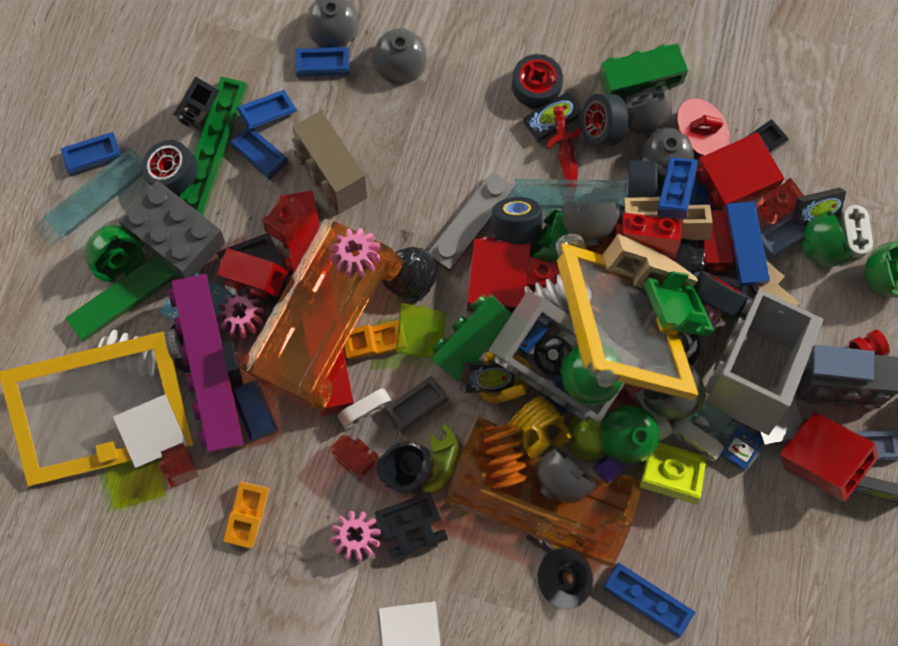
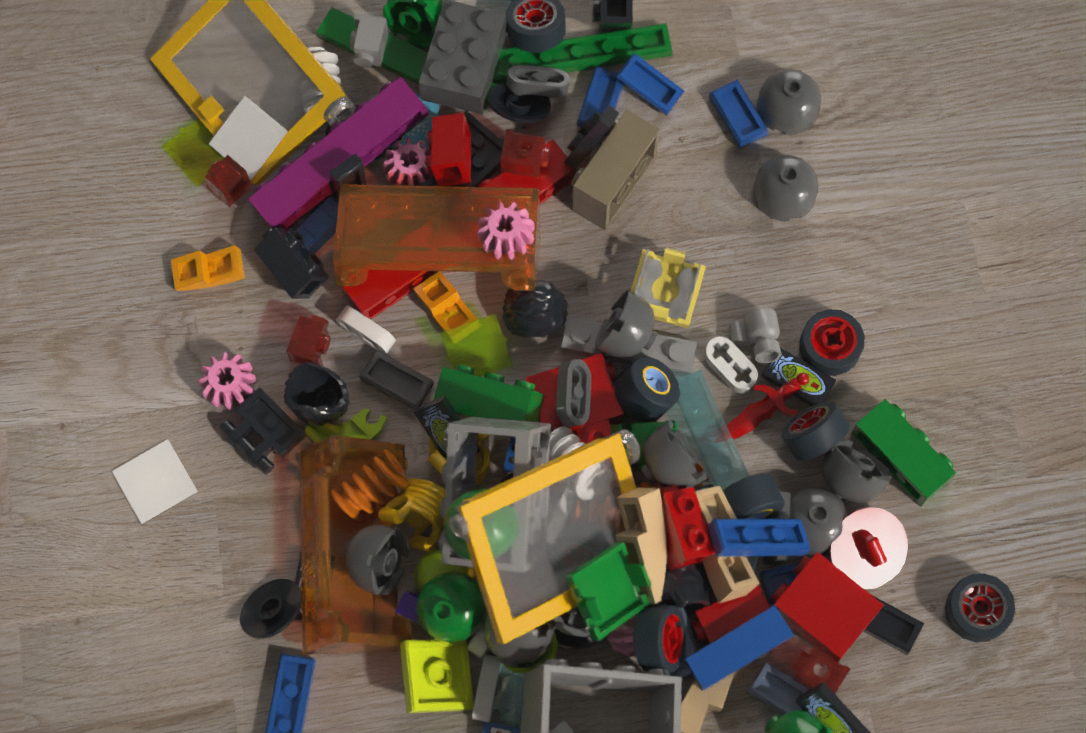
camera: 70 degrees right, 0 degrees up
(116, 297) = (369, 40): none -> light grey brick
(220, 188) = (537, 81): none -> dark grey plate
(232, 208) = (518, 108): none -> black dish
(278, 442) = (291, 262): none -> black brick
(294, 164) = (589, 135): none -> black plate
(438, 173) = (669, 285): none -> piece
(462, 210) = (628, 327): none -> dark grey cylinder
(501, 269) = (573, 393): none -> dark grey plate
(505, 123) = (761, 329): none -> light grey piece
(520, 157) = (736, 359): none -> white beam
(787, 72) = (987, 592): none -> wheel

